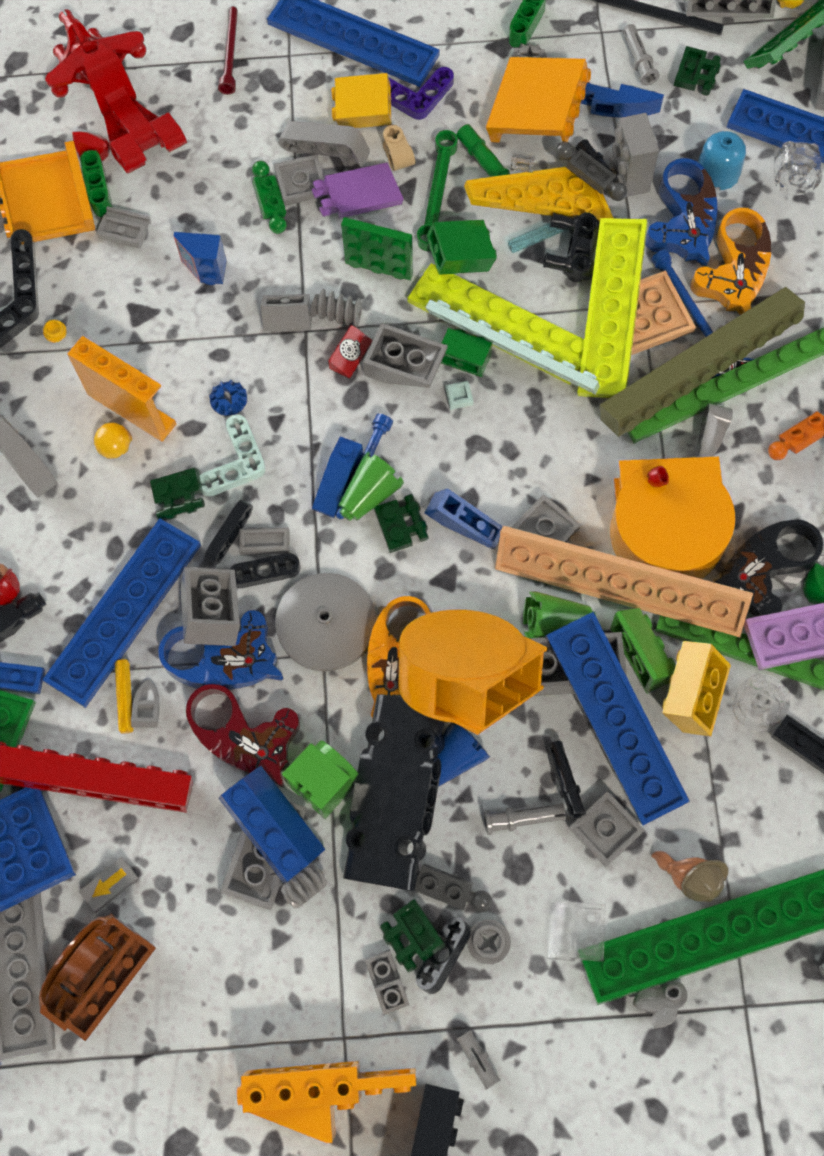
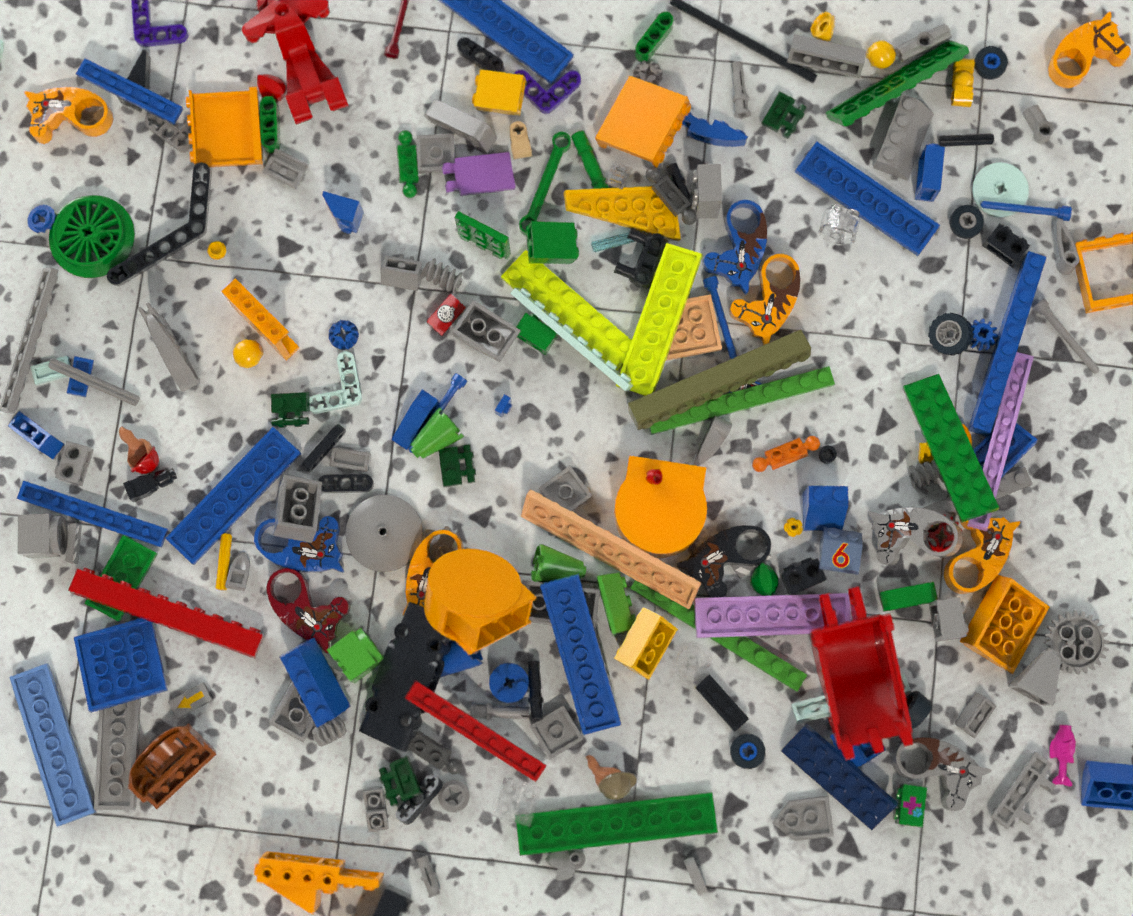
camera: 10 degrees right, 10 degrees up
(324, 65) = (479, 49): none -> black beam
(445, 441) = (504, 406): none -> blue plate
(459, 395) = (524, 367): light aqua tile -> none
(463, 518) = (505, 473): blue slope -> none
(502, 844) = (475, 731): none -> red plate
(530, 761) = (499, 677): none -> blue brick
(723, 158) = (780, 212): dark azure cylinder -> none

